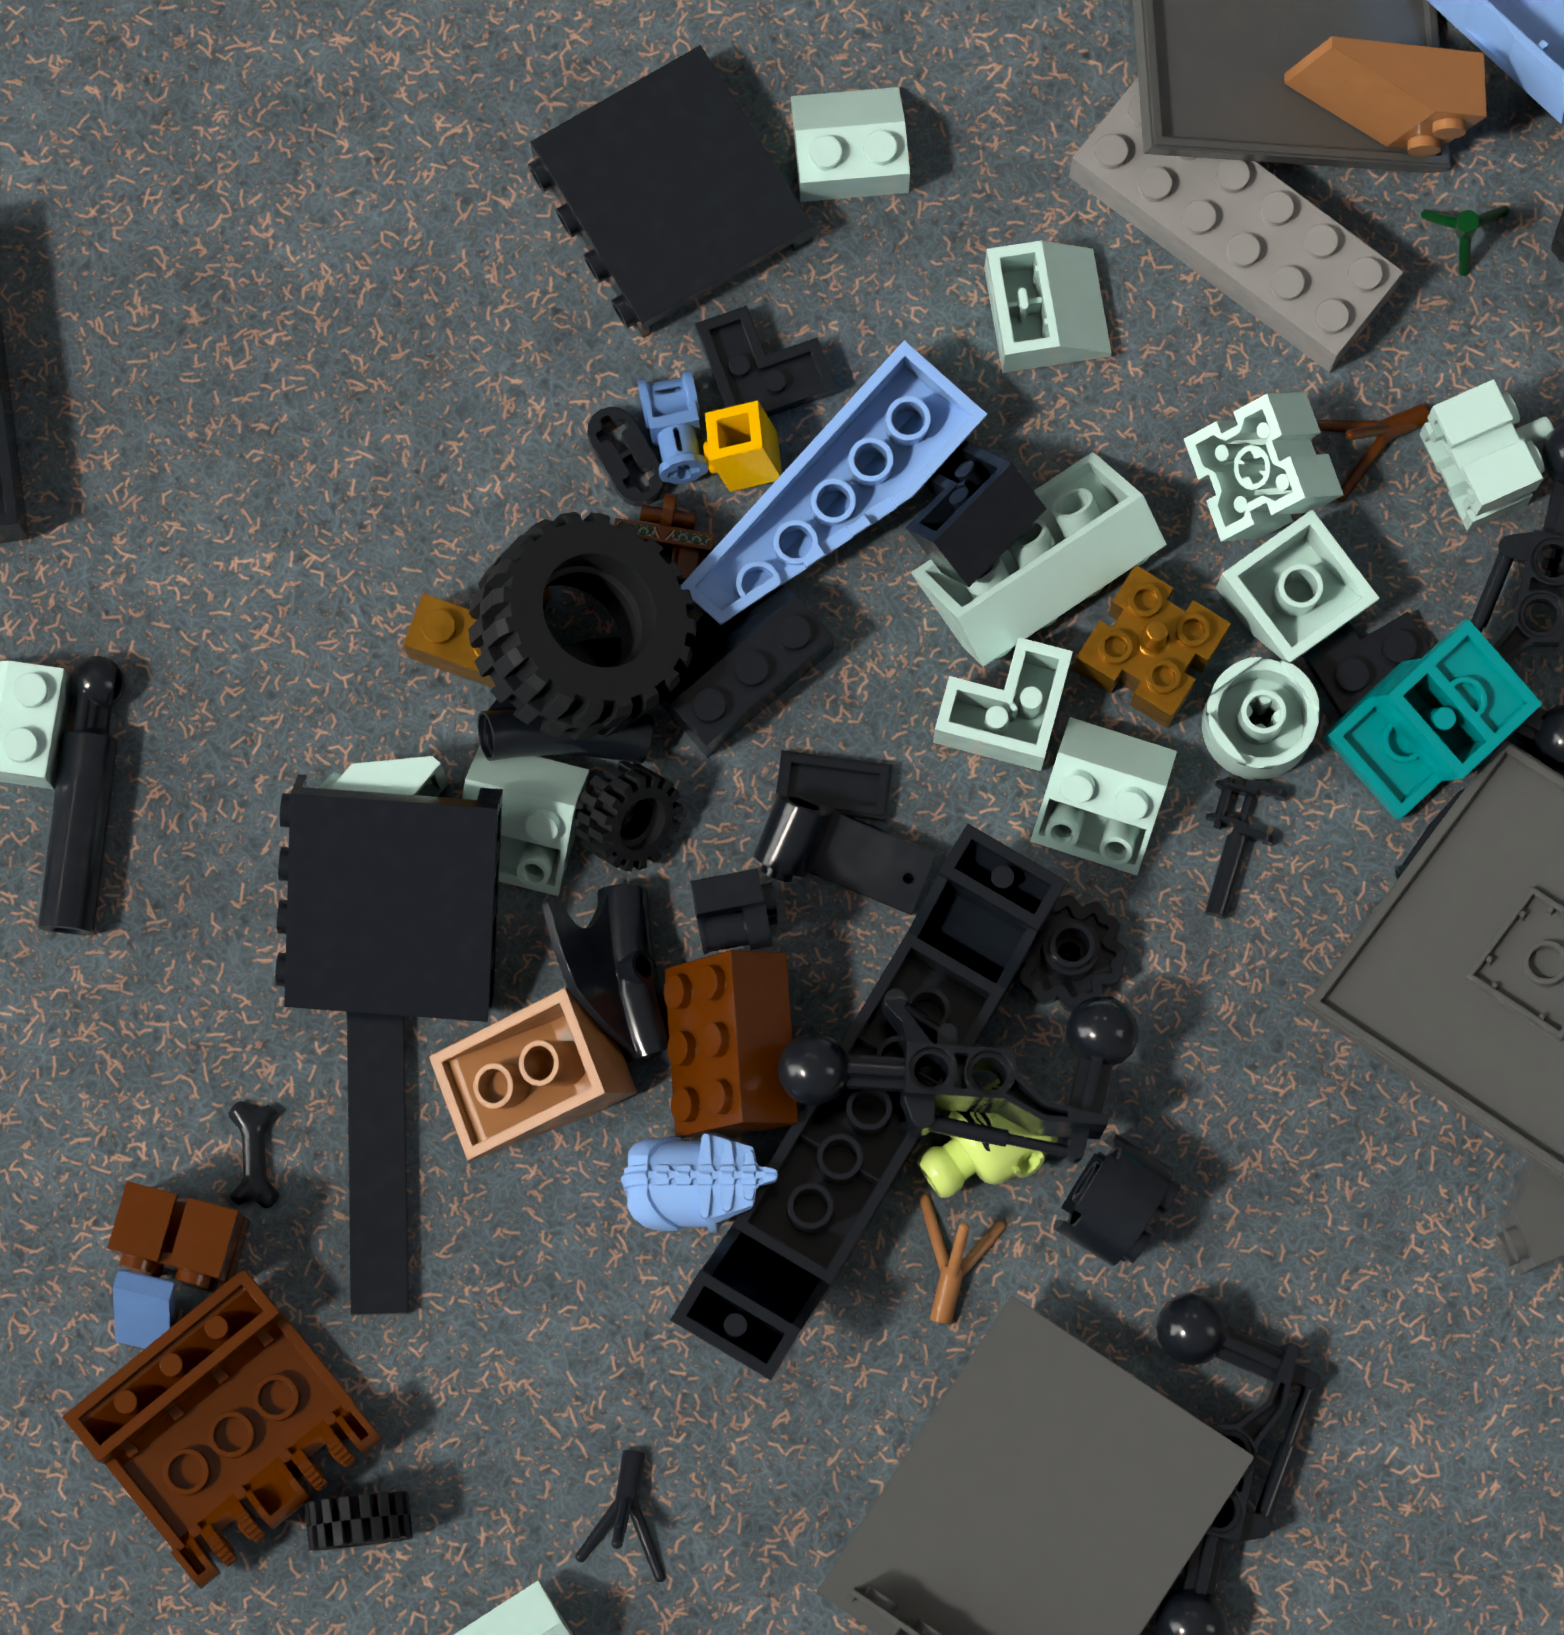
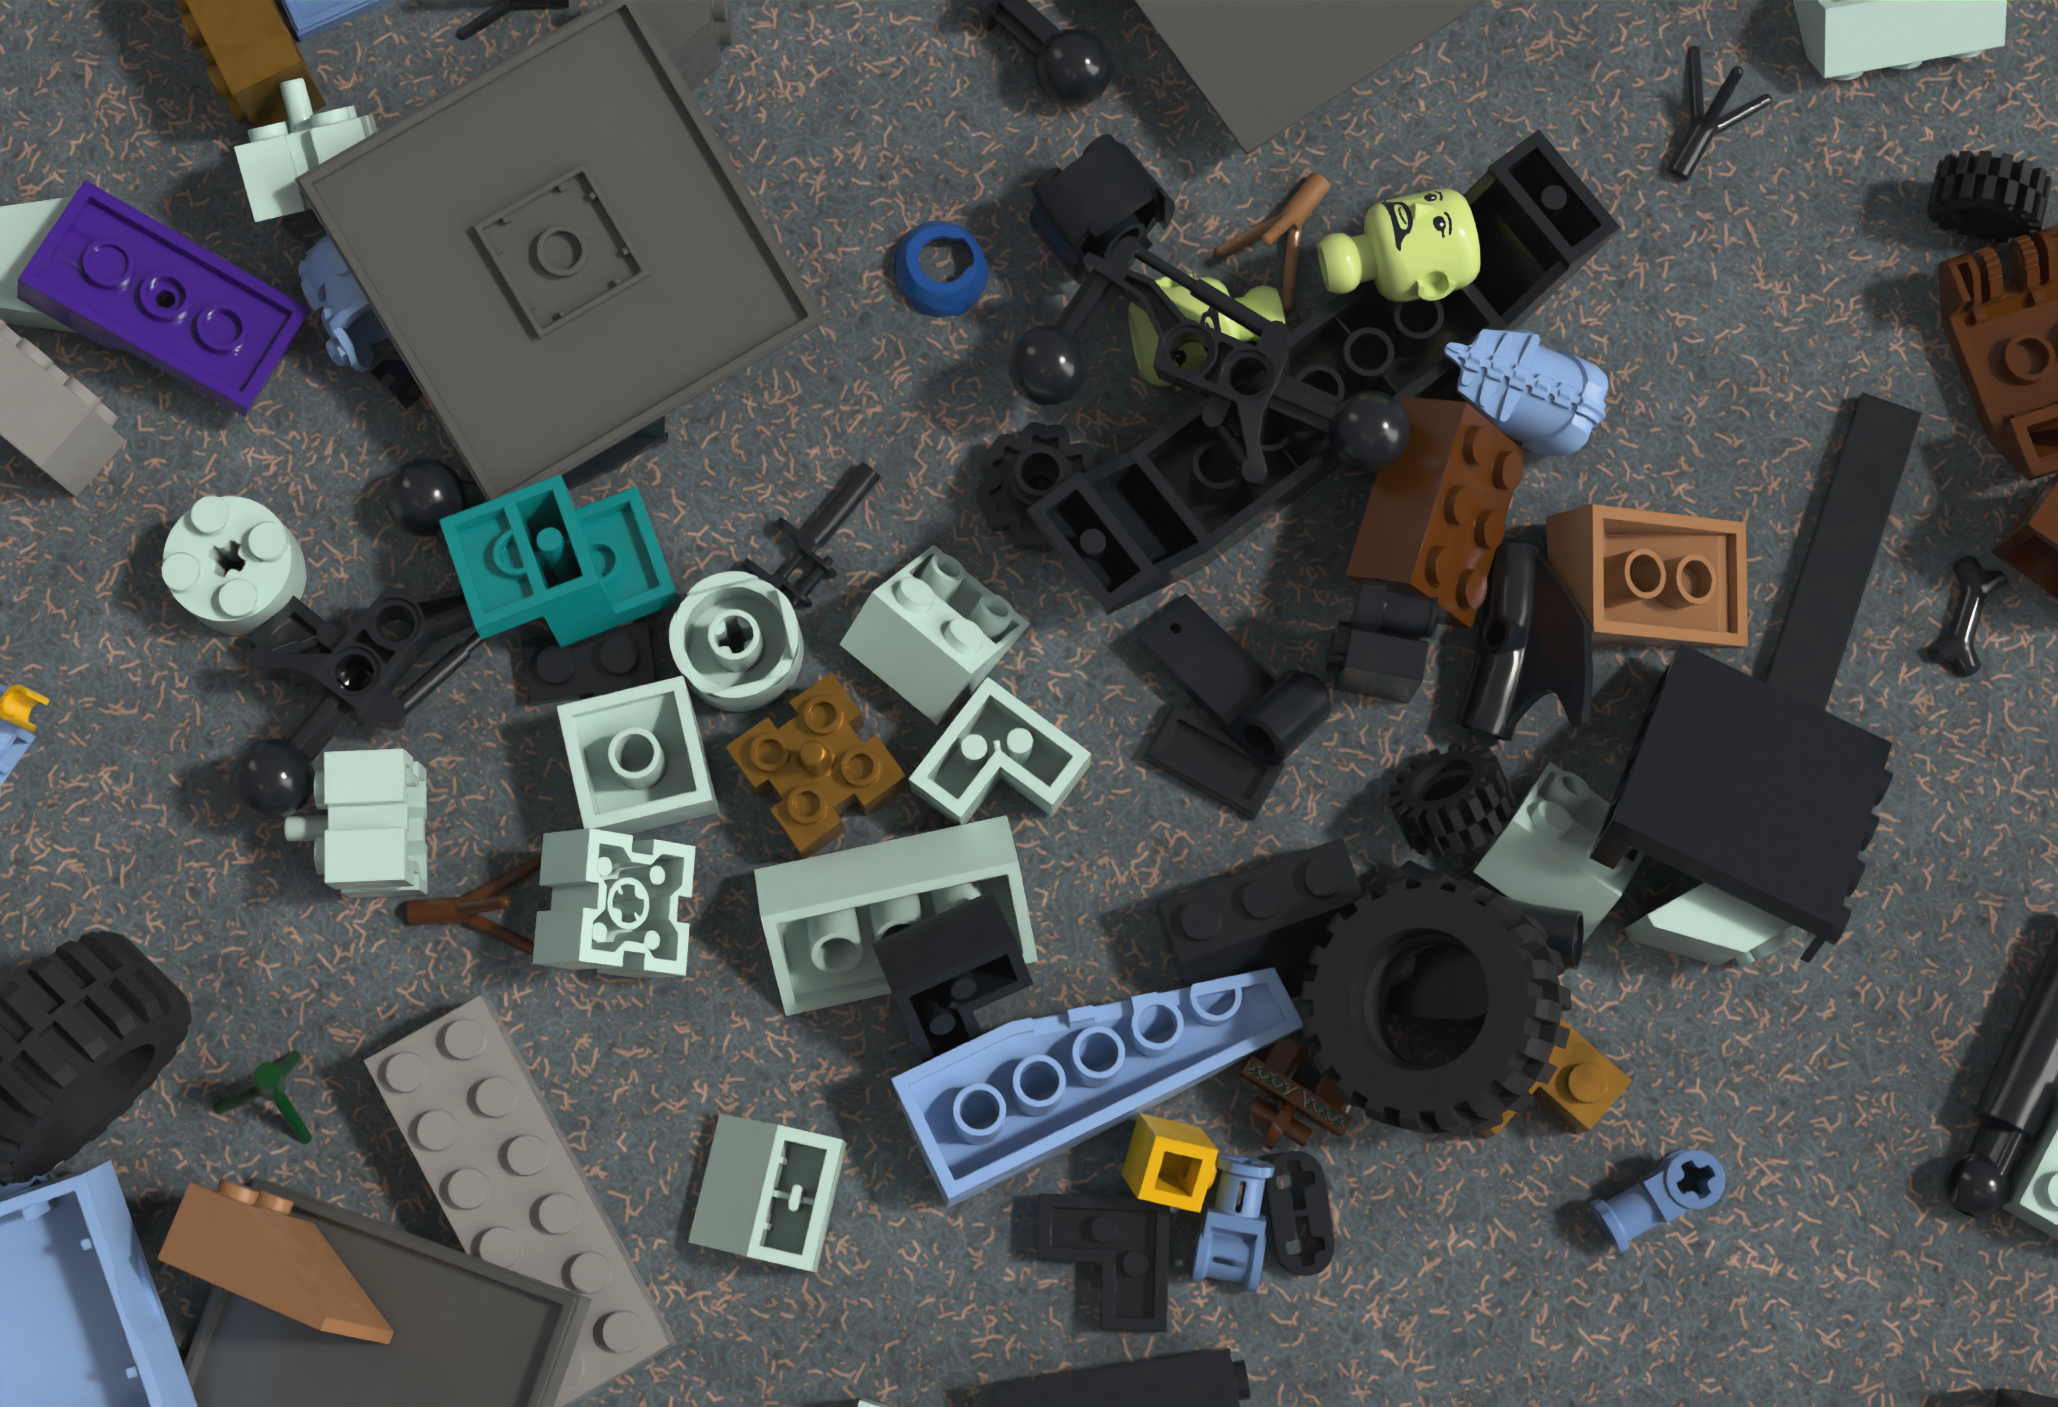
camera: 160 degrees left, 0 degrees up
(347, 576) = (1657, 1197): none -> medium blue connector
(838, 1243) = (1409, 247): none -> yellowish green piece
(1265, 1119) = (932, 296): none -> blue piece

